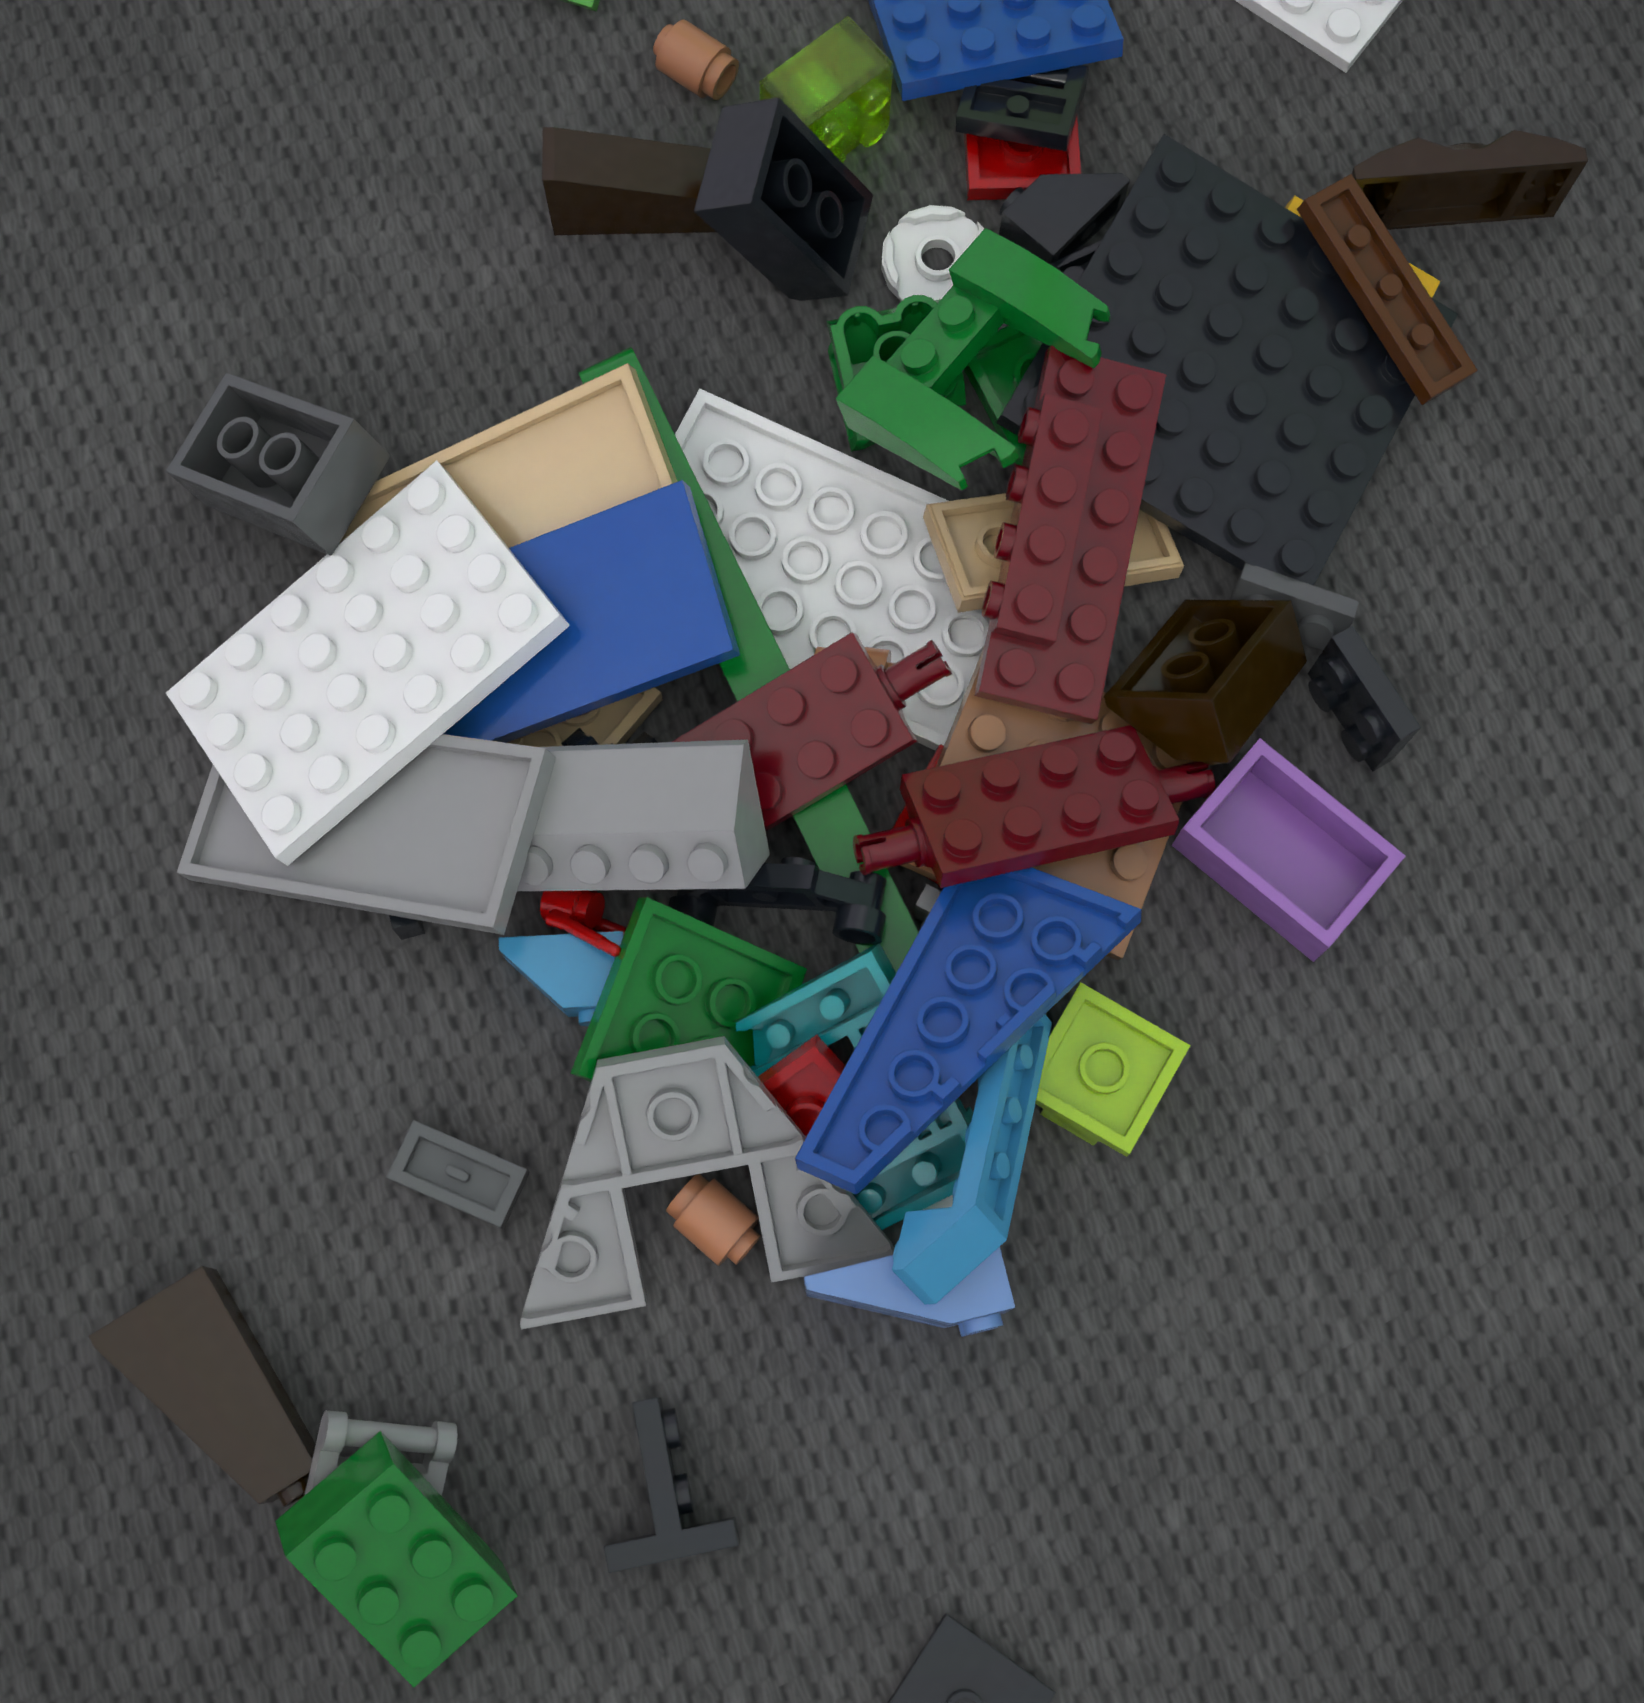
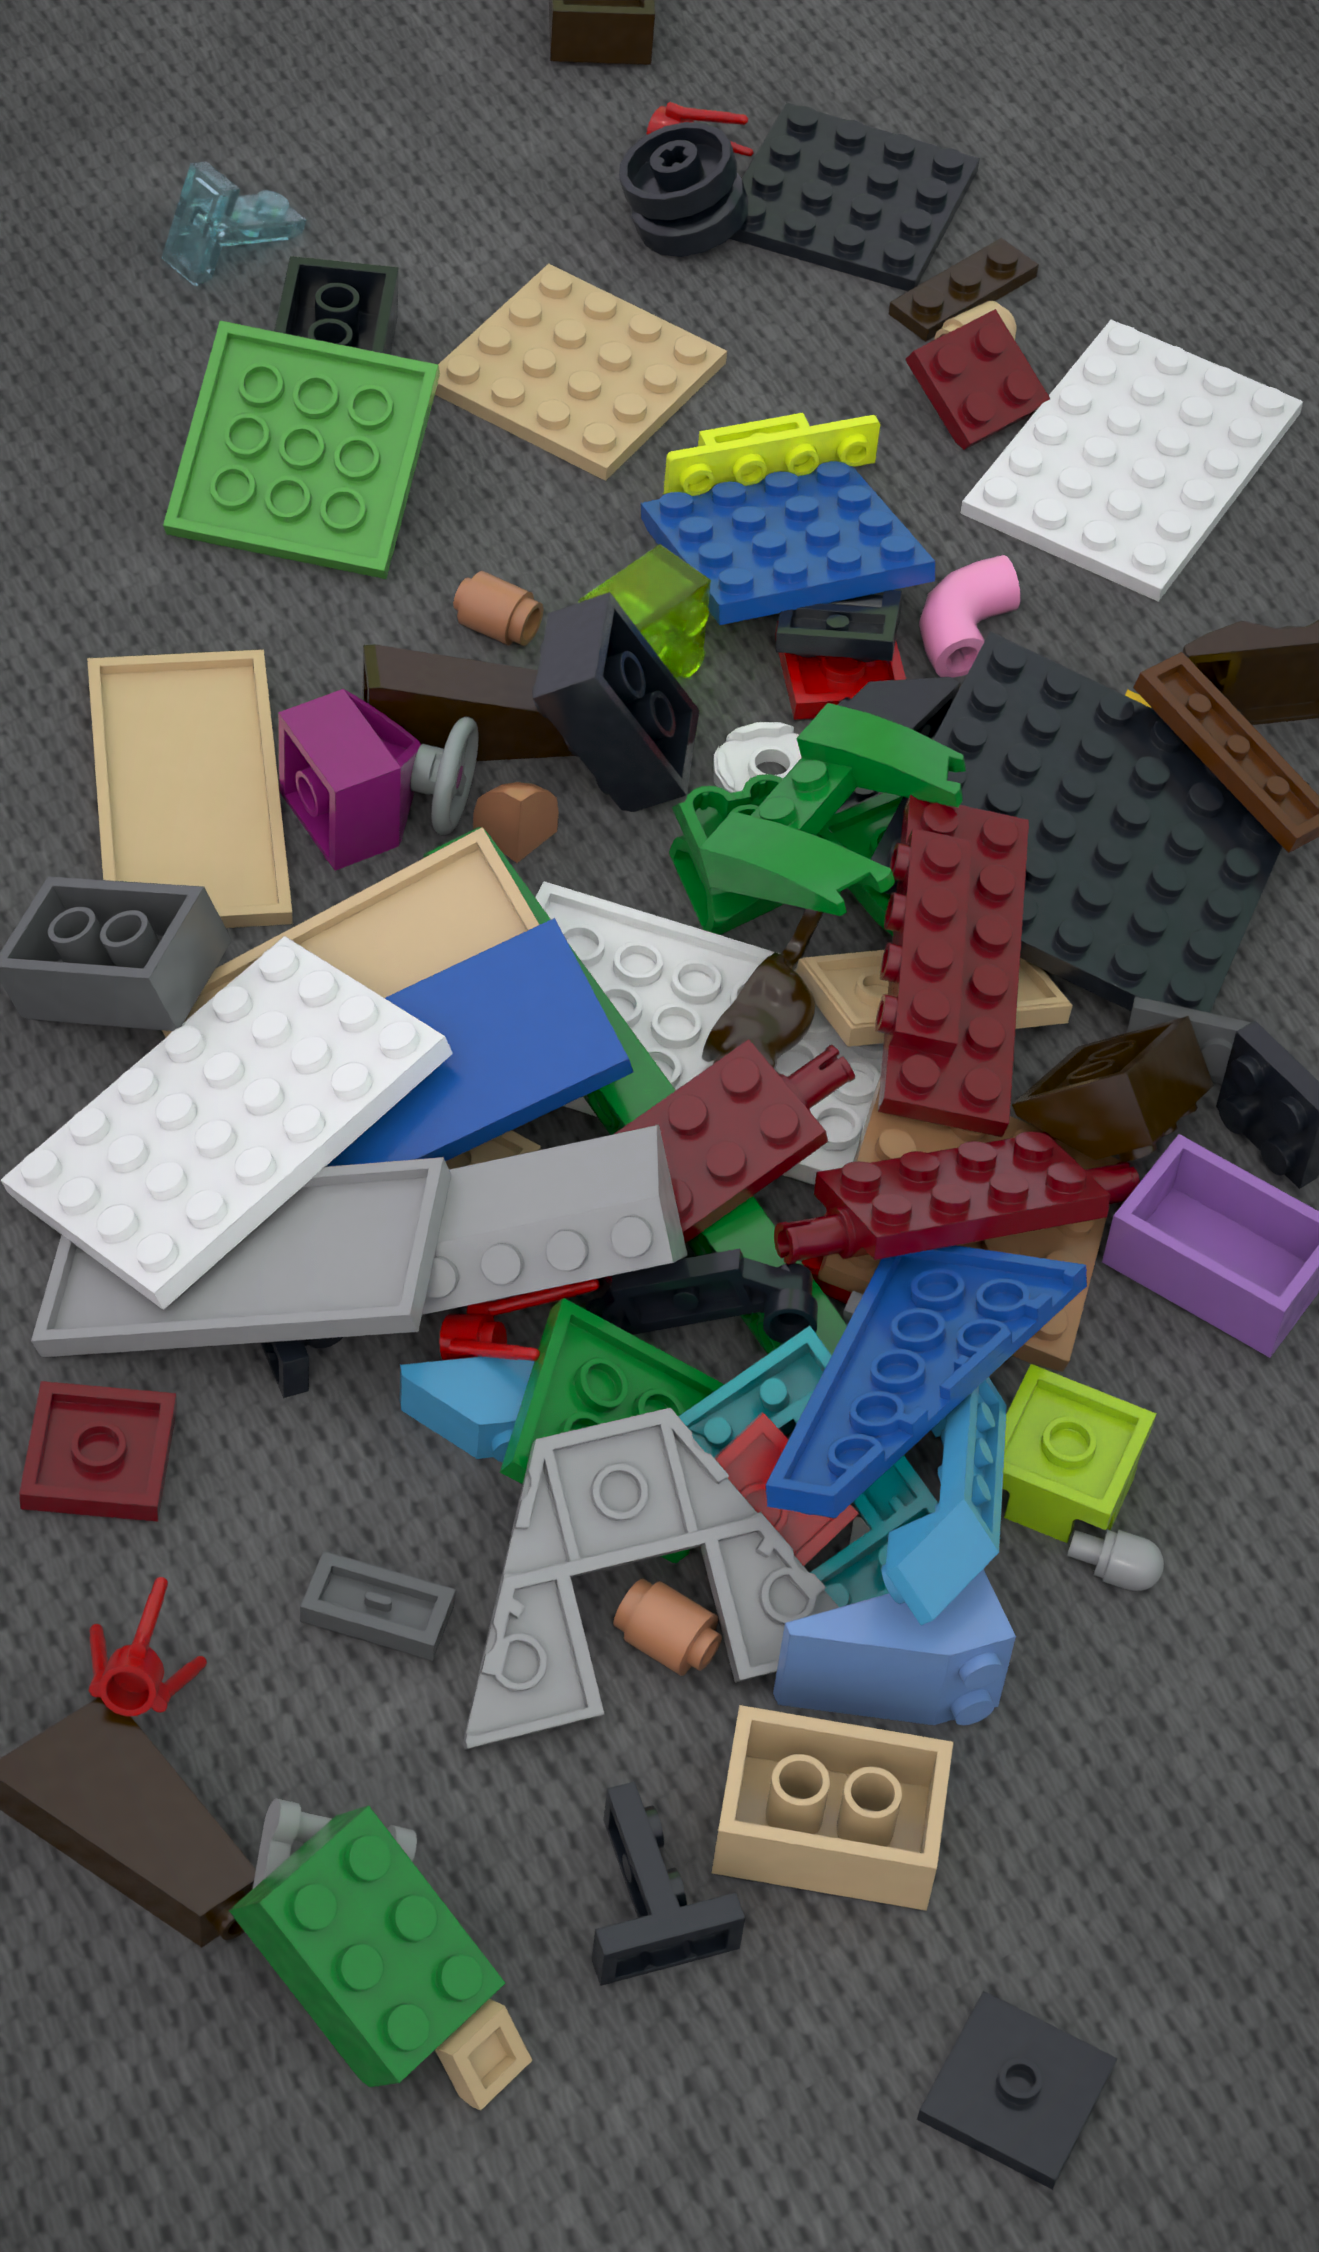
camera: 10 degrees left, 25 degrees down
(220, 1263) = (134, 1673): none -> red plant
(226, 993) = (98, 1451): none -> dark red plate
(381, 255) = (191, 779): none -> tan tile
(499, 1647) = (484, 2054): none -> tan plate
(540, 256) = (356, 774): none -> magenta piece
(683, 313) = (517, 817): none -> nougat brick
(834, 1432) = (833, 1808): none -> tan brick
(885, 573) = (772, 1006): none -> dark brown animal
(1138, 1175) = (1120, 1558): none -> light grey cylinder
(1141, 79) = (957, 607): none -> bright pink cylinder

